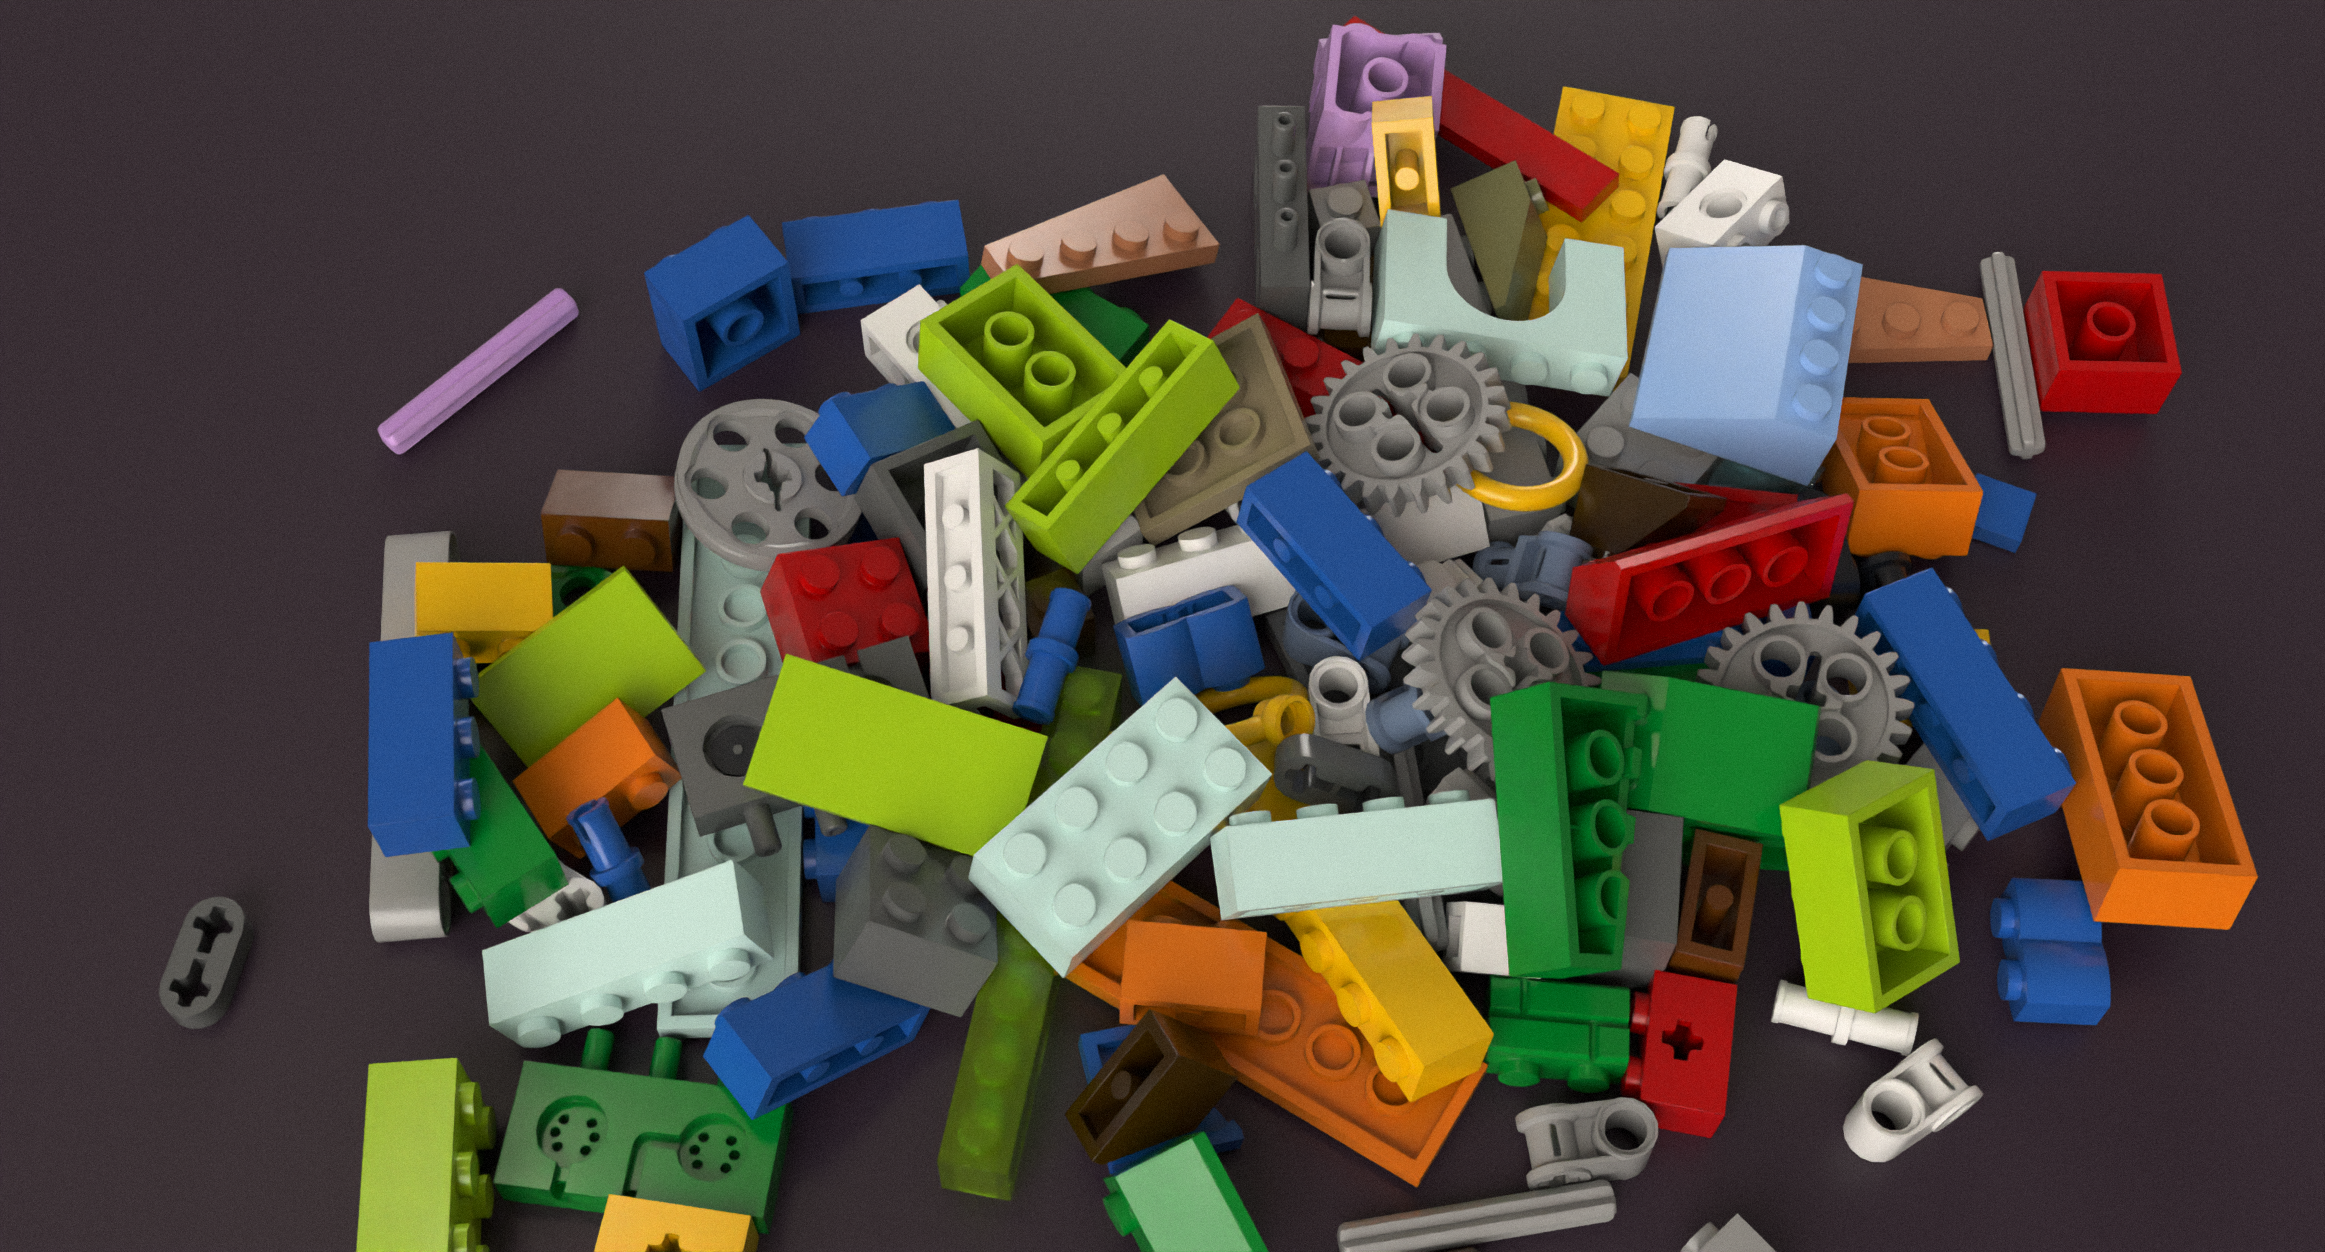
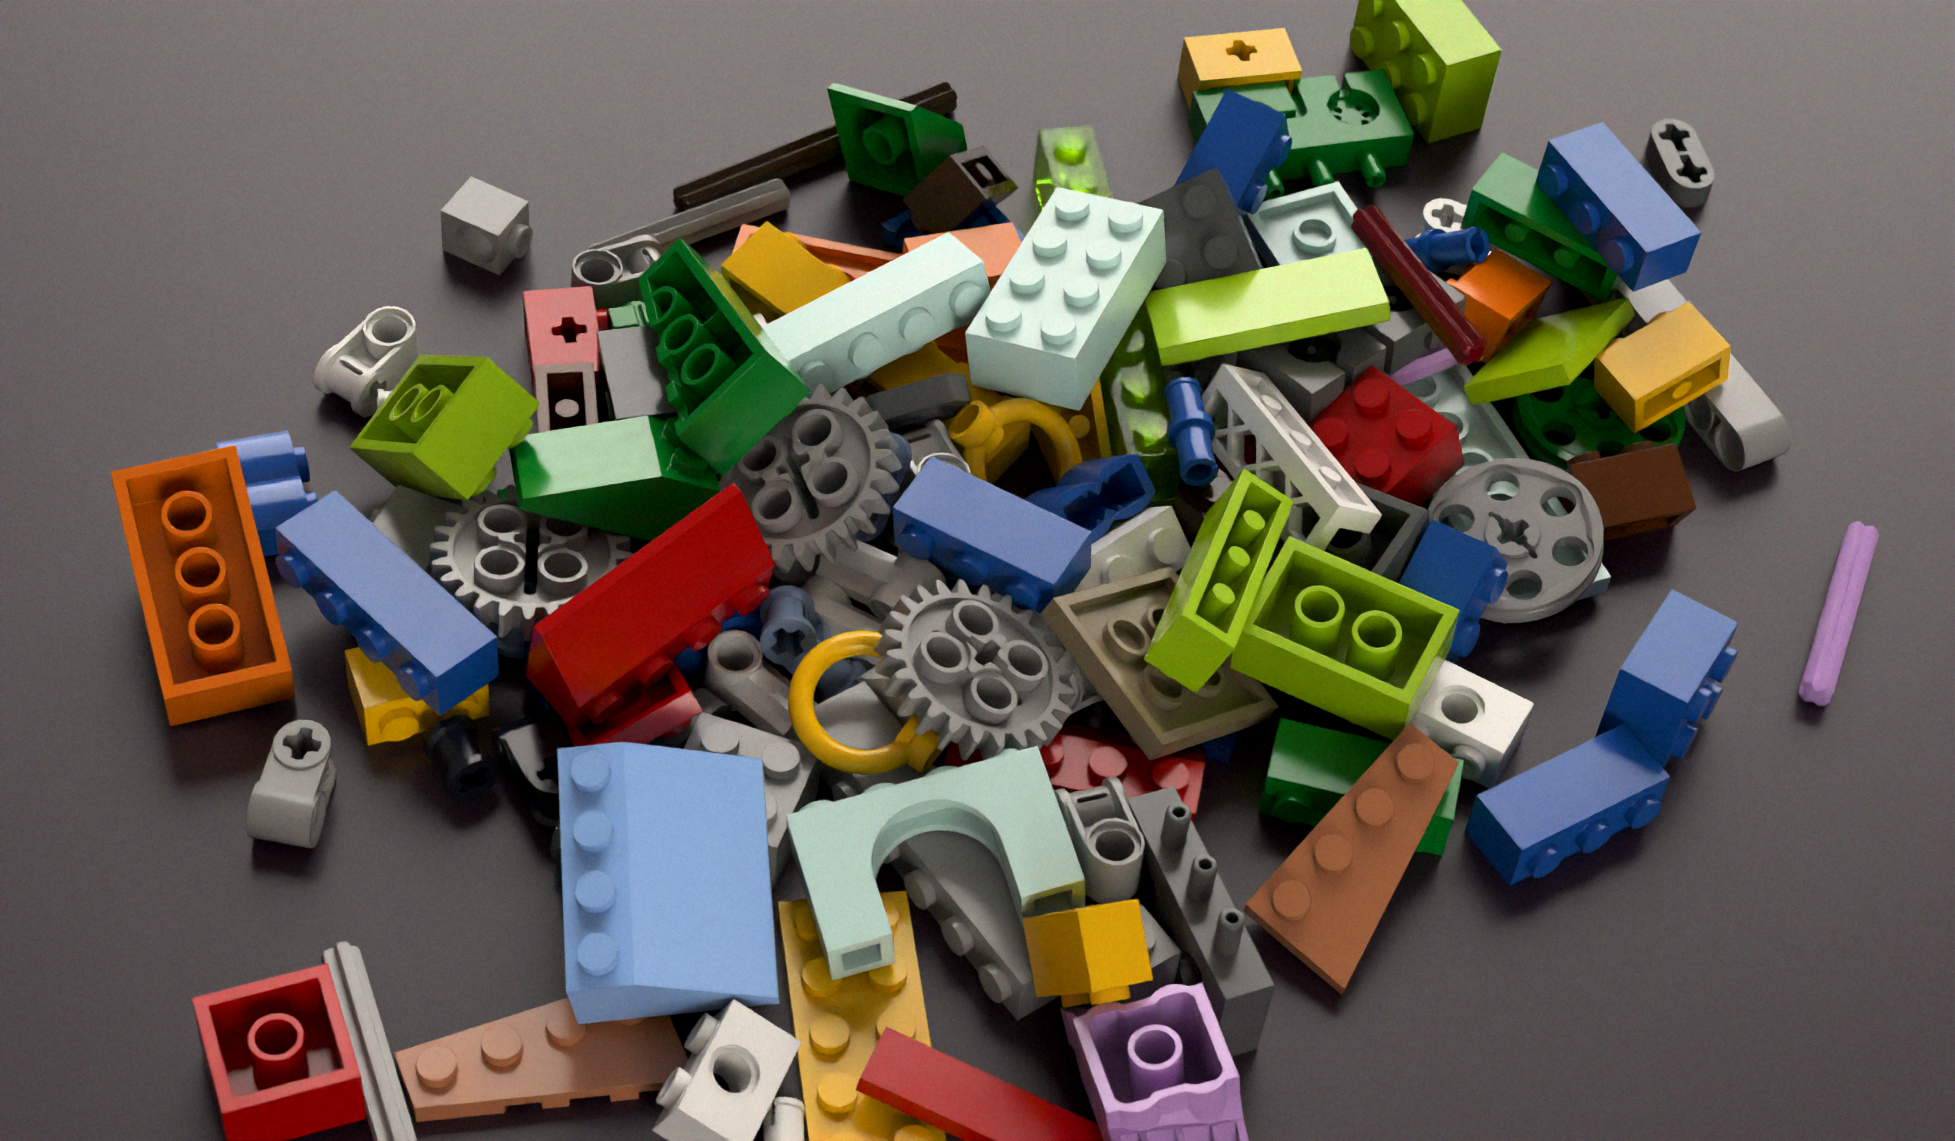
camera: 155 degrees right, 10 degrees down
(627, 955) = (1391, 175): light aqua brick -> none
(713, 727) = (1419, 285): none -> dark red axle
(1505, 235) = (954, 976): olive slope -> none
(1631, 509) = (723, 667): dark brown slope -> none
(1904, 479) = (482, 873): orange slope -> none
(2002, 513) = (364, 881): blue tile -> none
(2053, 605) = (294, 786): none -> light grey piece

